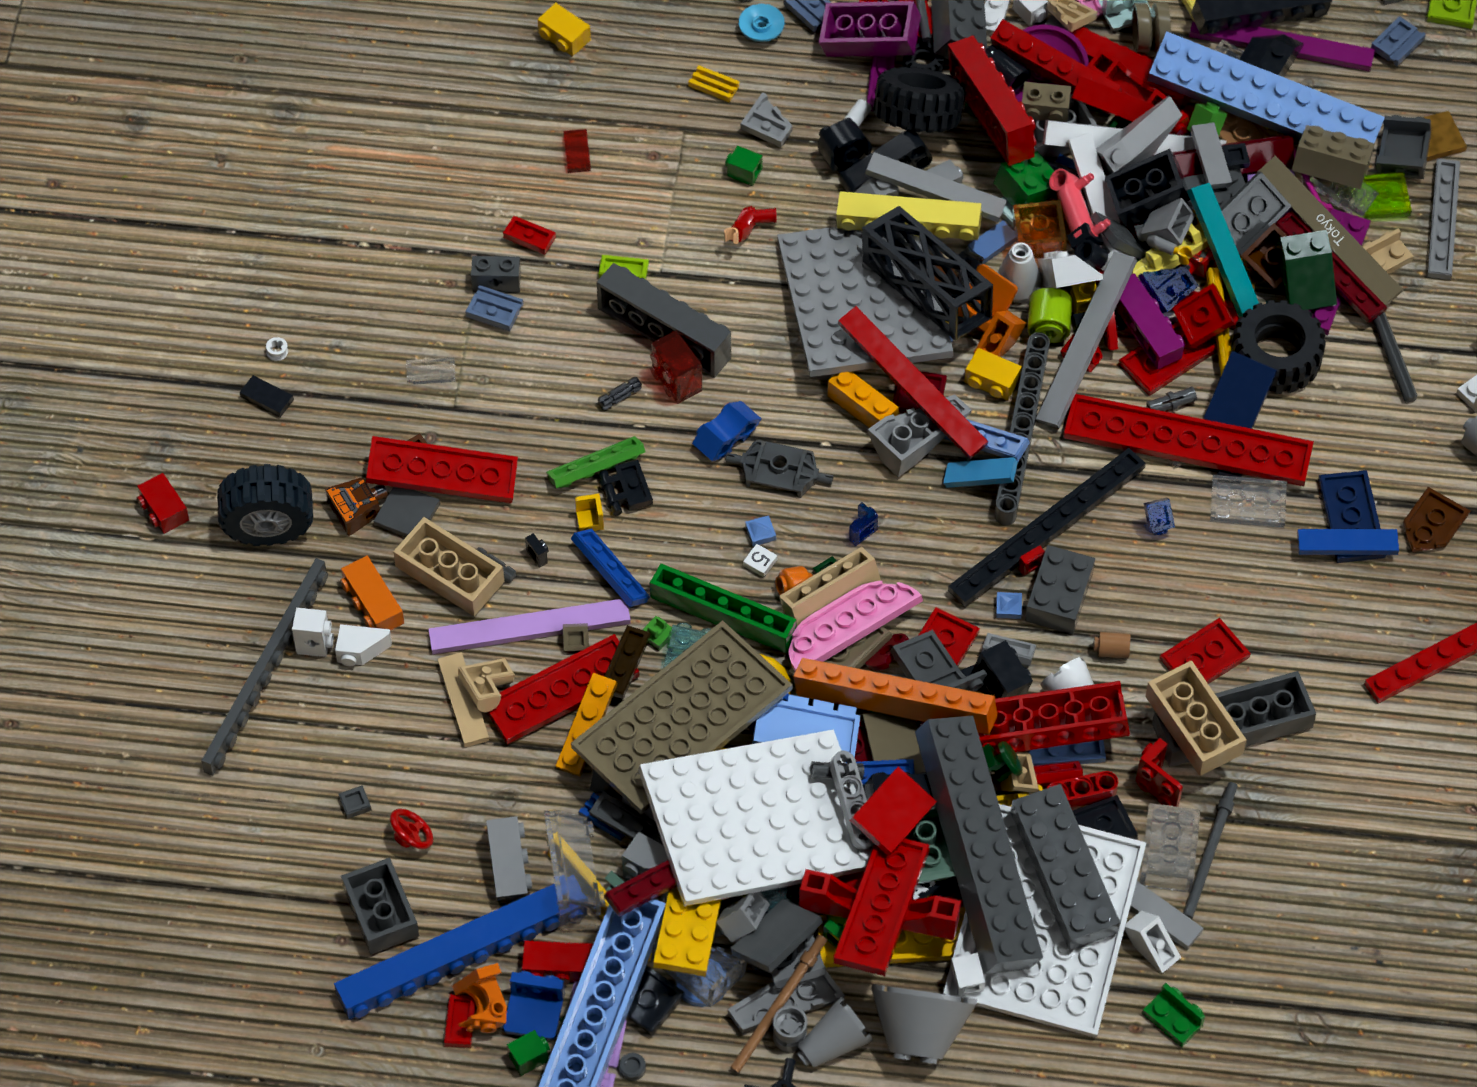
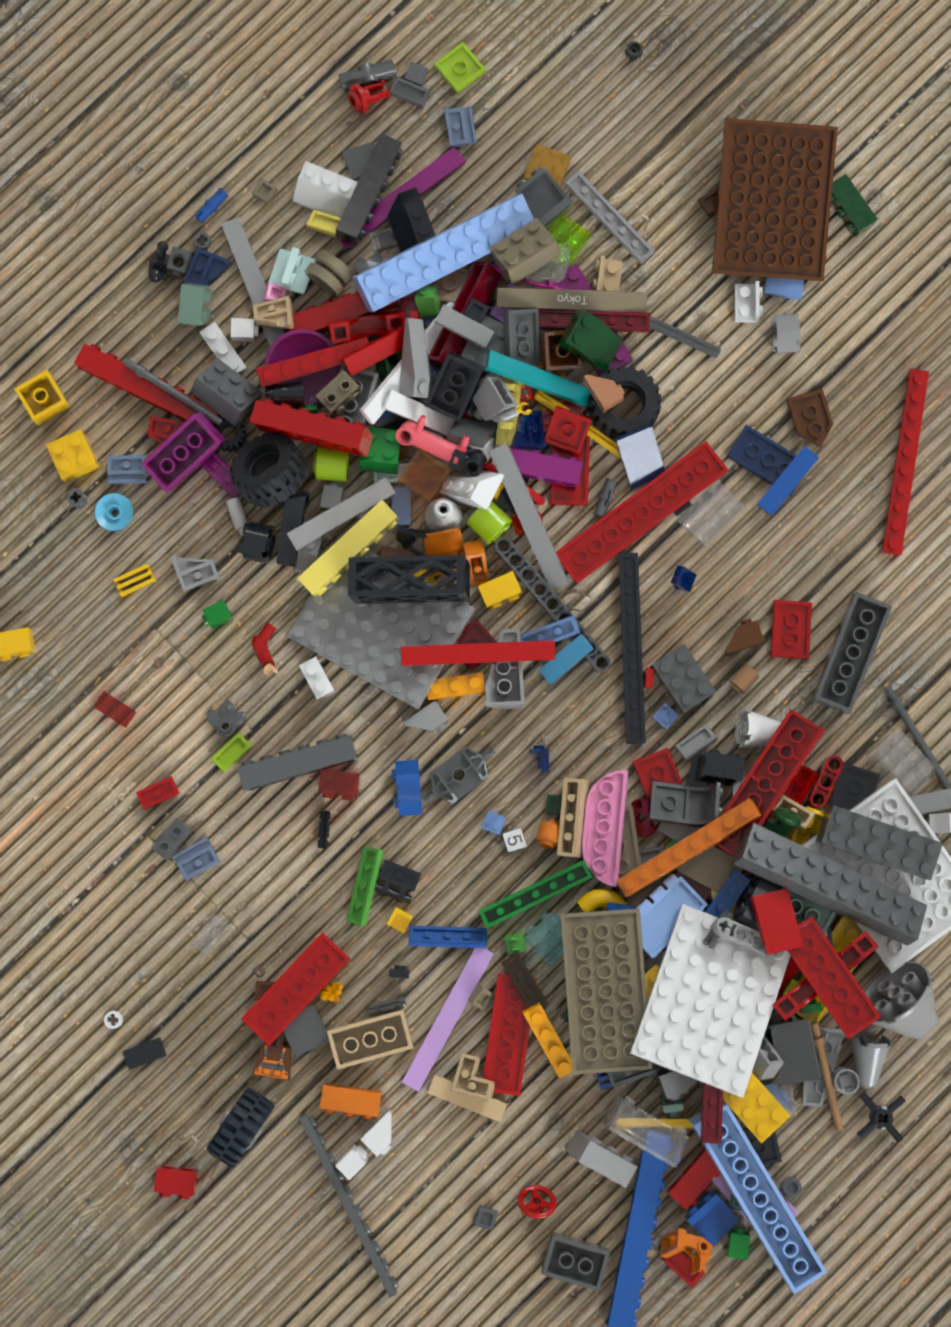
camera: 55 degrees left, 25 degrees up
(464, 508) = (332, 992): none -> light orange plant
(651, 242) = (226, 716): none -> dark grey plate
(760, 284) = (317, 678): none -> white brick
(809, 400) = (428, 719): none -> light grey slope
(967, 973) = (896, 953): white brick -> none
(976, 153) = (331, 465): none -> lime piece
(1154, 616) = (745, 636): none -> reddish brown slope
(1154, 779) = (843, 729): red bracket -> none
(1195, 718) = (848, 684): tan brick -> none
(1268, 307) = (604, 391): none -> nougat slope

